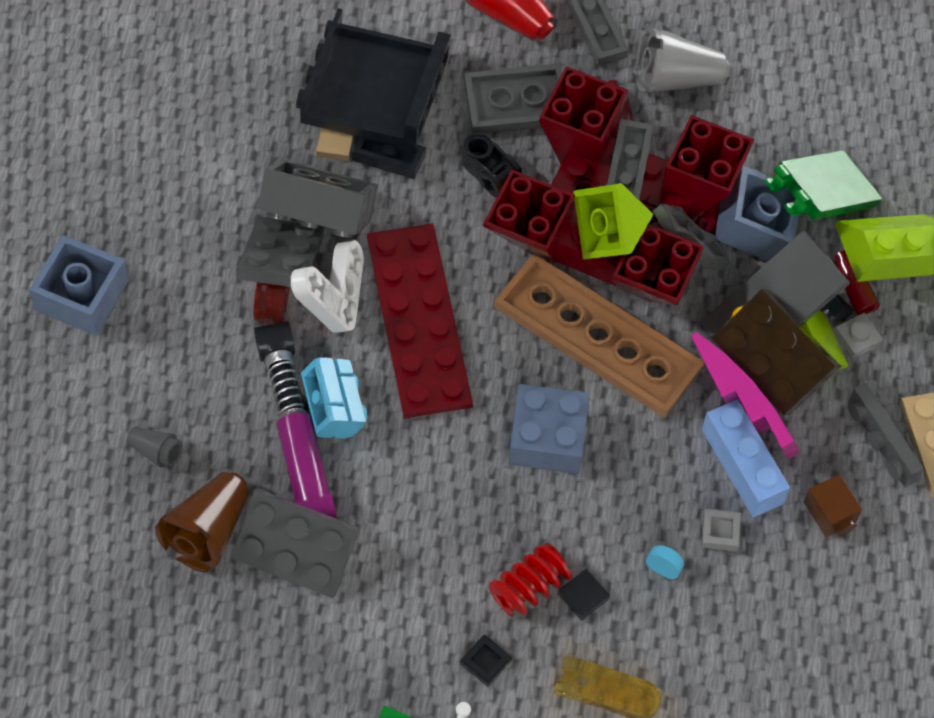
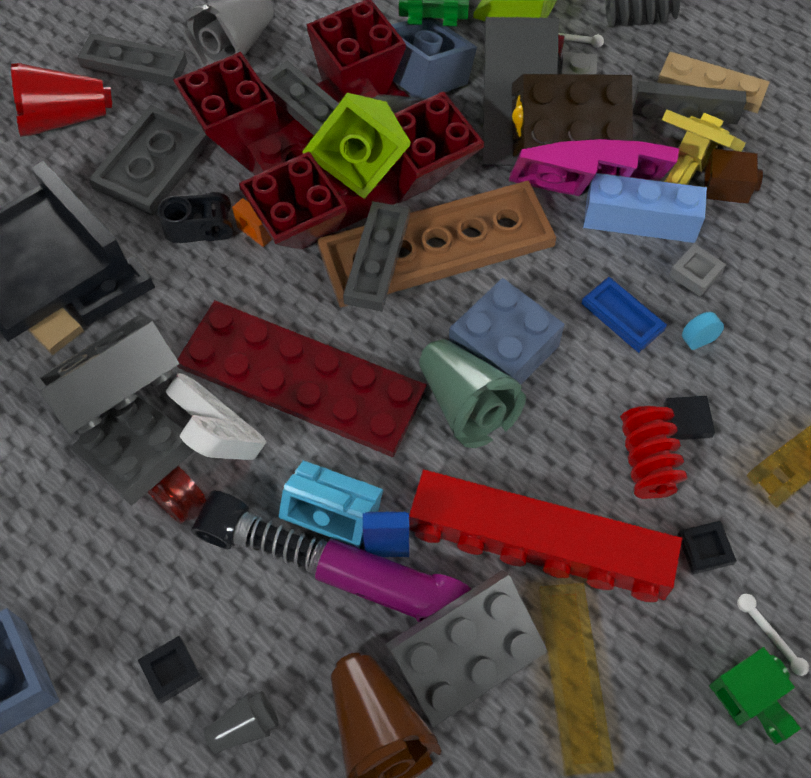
camera: 50 degrees left, 0 degrees up
(158, 381) = (170, 669): none -> black plate
(327, 626) = (575, 680): none -> clear yellow tile
(332, 443) = (386, 533): none -> blue tile
(412, 546) = (545, 535): none -> red brick
(482, 432) = (470, 392): none -> sand green cone
(545, 300) = (376, 256): none -> dark grey plate
(640, 501) = (624, 314): none -> blue tile
(847, 460) = (700, 139): none -> light yellow piece
(902, 330) = (596, 41): none -> white hinge

